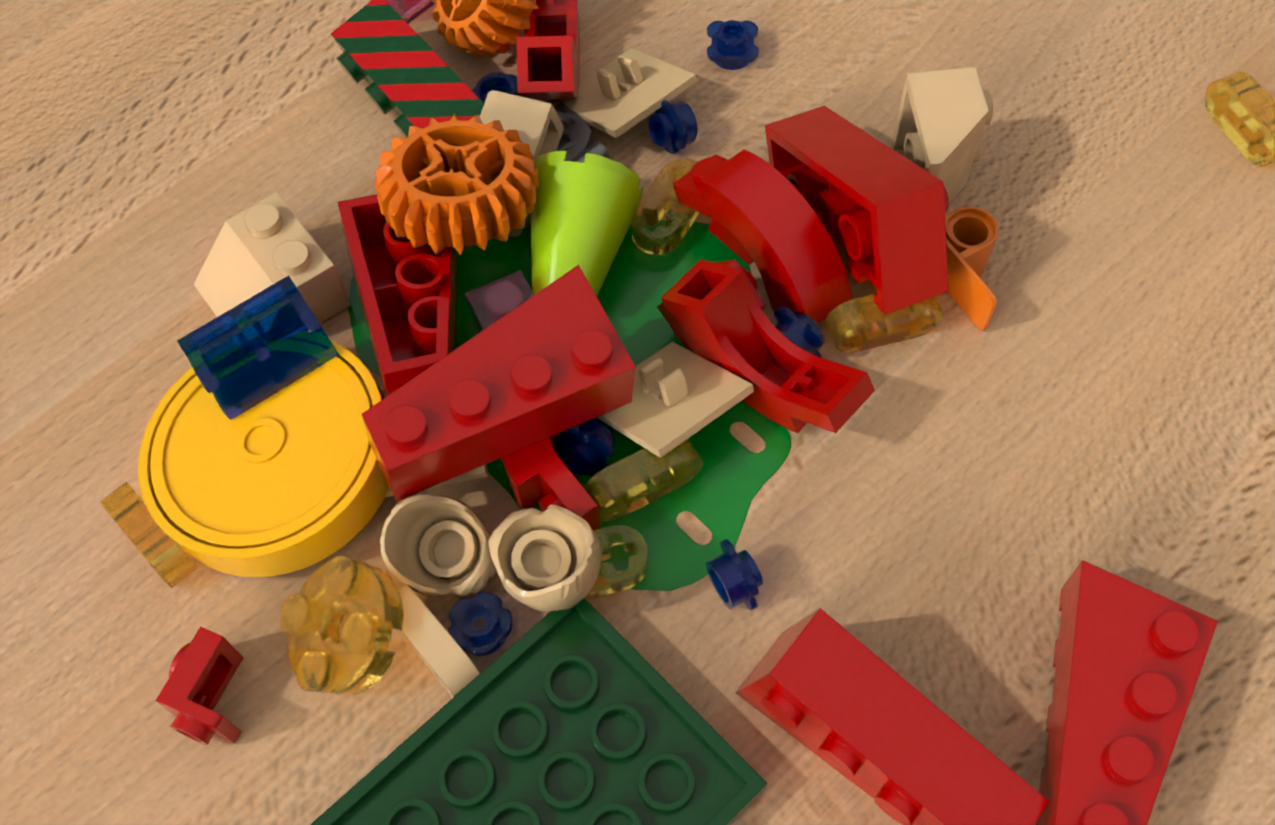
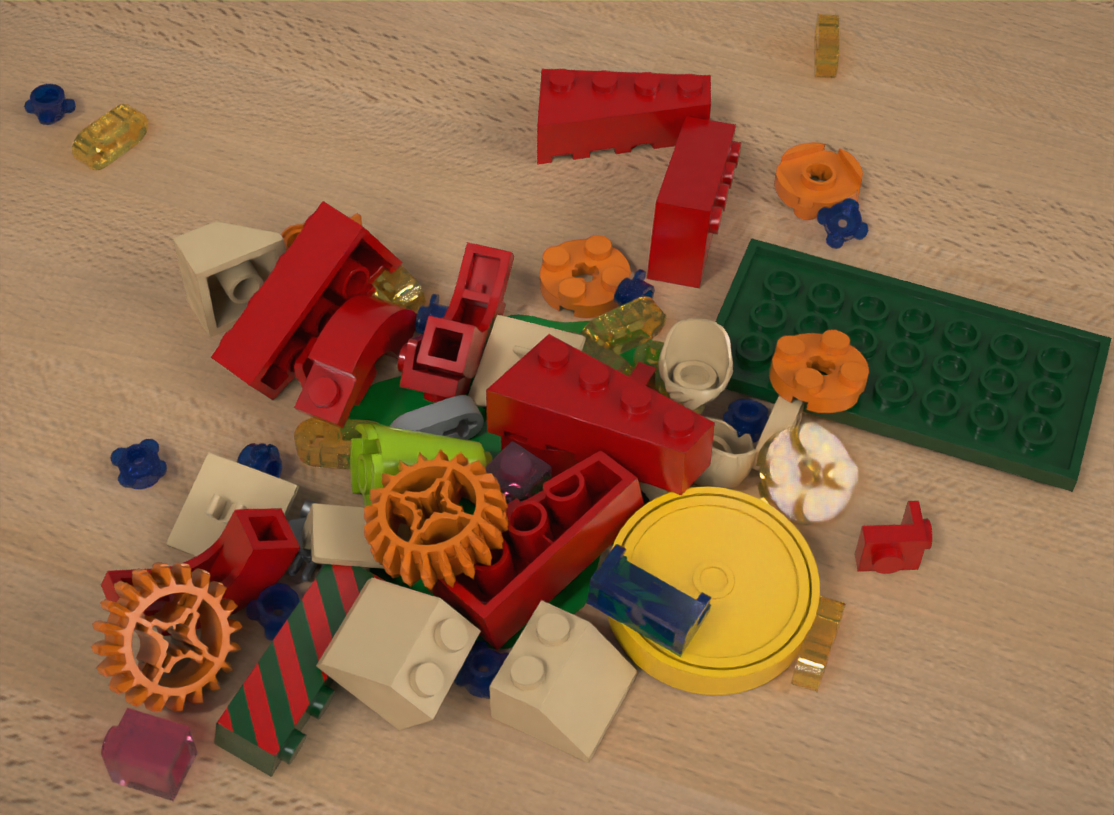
camera: 120 degrees left, 10 degrees down
(319, 228) = (471, 678): none -> clear blue plate
(349, 130) = (399, 652): none -> tan slope
(491, 753) = (797, 374): none -> orange plate
(637, 287) = (450, 417): none -> light grey beam
(686, 539) = (626, 325): none -> clear yellow beam
(816, 511) = (578, 257): none -> orange plate

